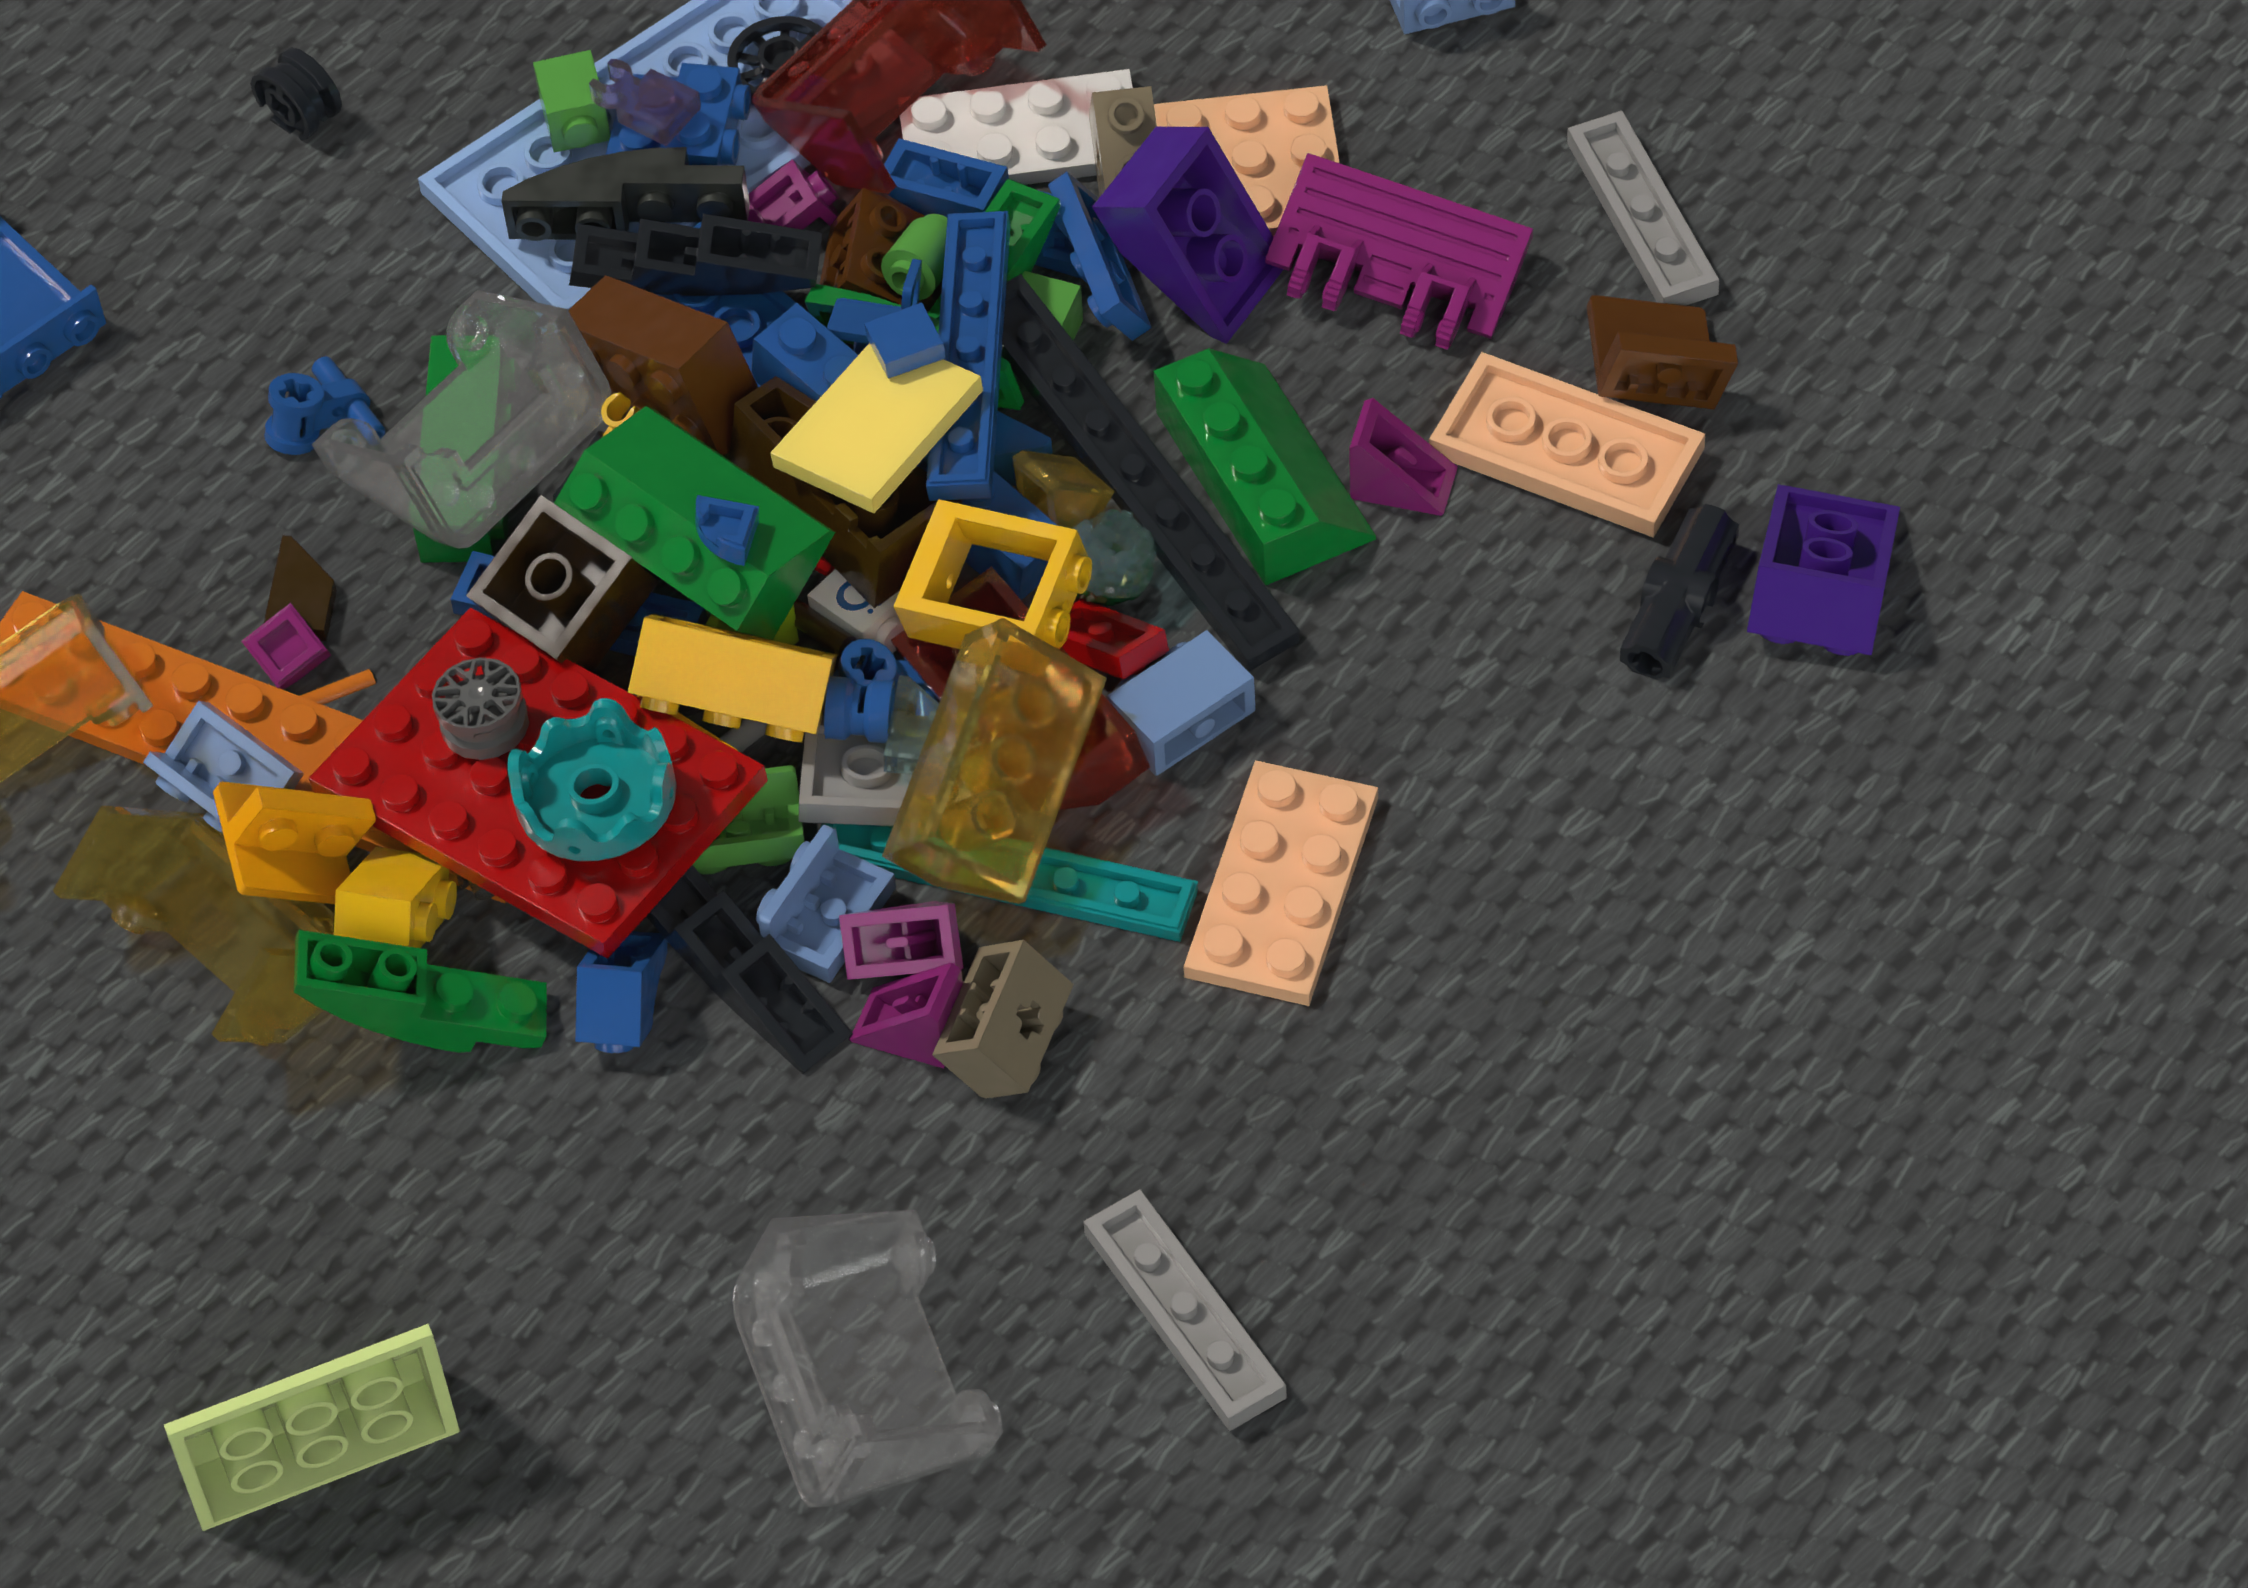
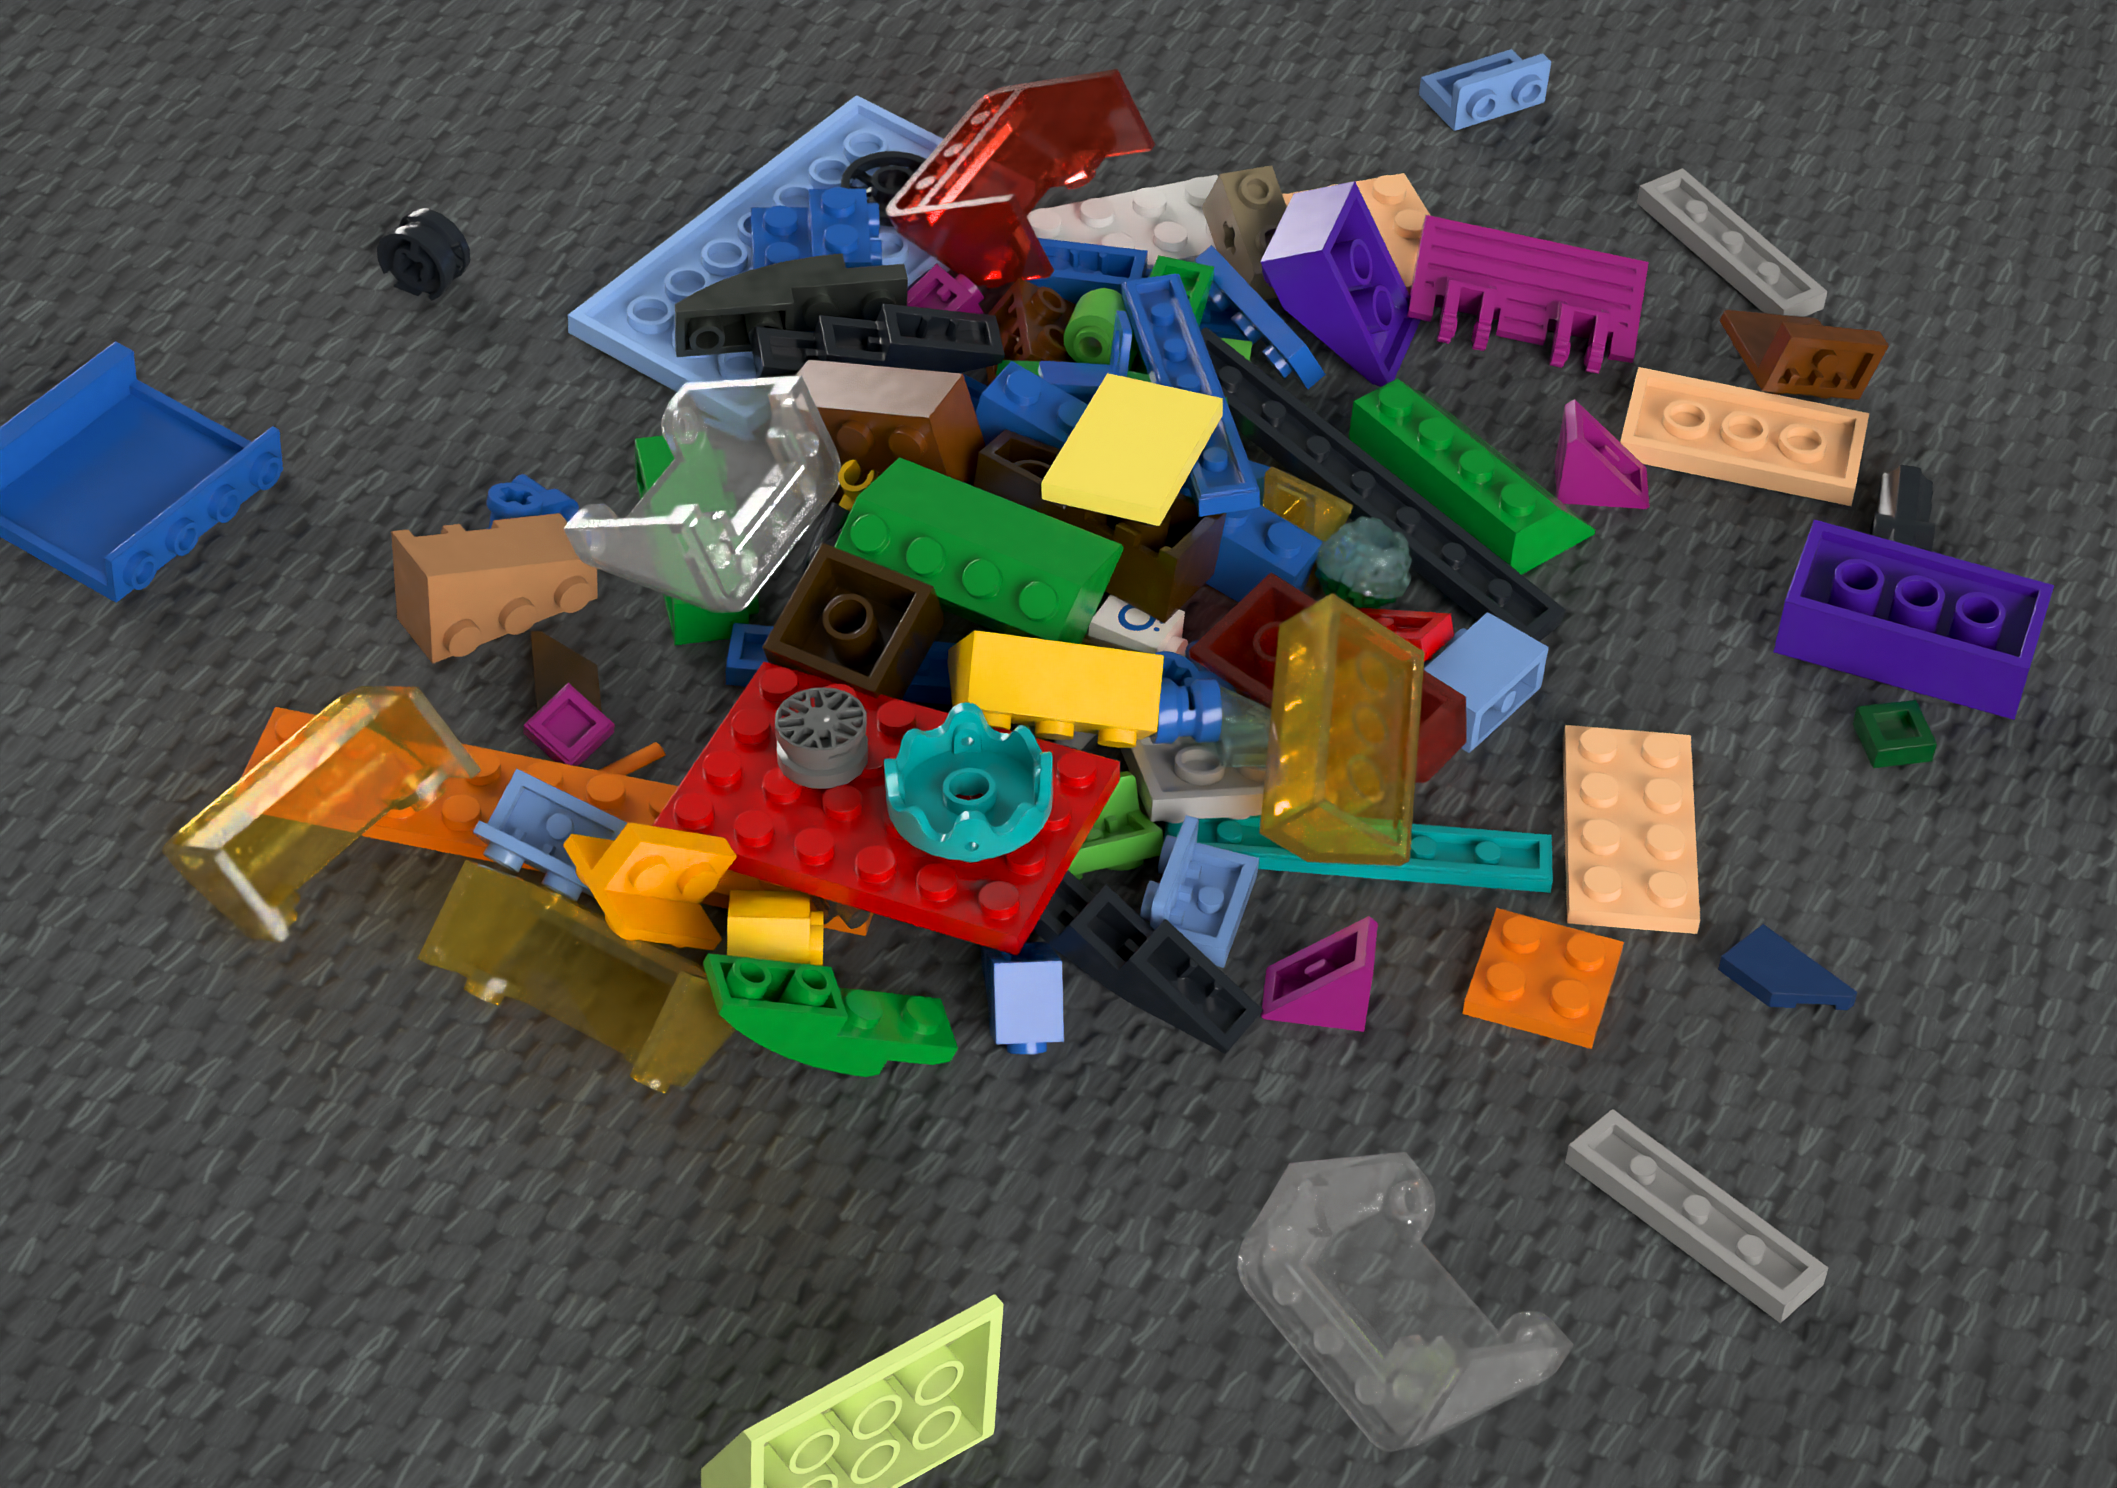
camera: 20 degrees left, 10 degrees down
(247, 480) = (486, 582): none -> medium nougat wedge
(567, 102) = (707, 232): bright green brick -> none
(648, 105) = (797, 219): clear purple plate -> none
(726, 527) = (1025, 545): blue tile -> none
(900, 940) = (1297, 910): magenta slope -> none
(905, 340) = (1140, 374): blue tile -> none
(942, 554) = (1284, 534): yellow window -> none
(1003, 1019) = (1423, 970): dark tan brick -> none
(1135, 1036) = (1543, 978): none -> orange plate
(1372, 1062) = (1782, 973): none -> dark blue tile
(1588, 811) = (1894, 734): none -> dark green plate
(1645, 686) = (1913, 619): none -> dark purple slope
(1823, 570) = (2025, 515): dark purple slope -> none

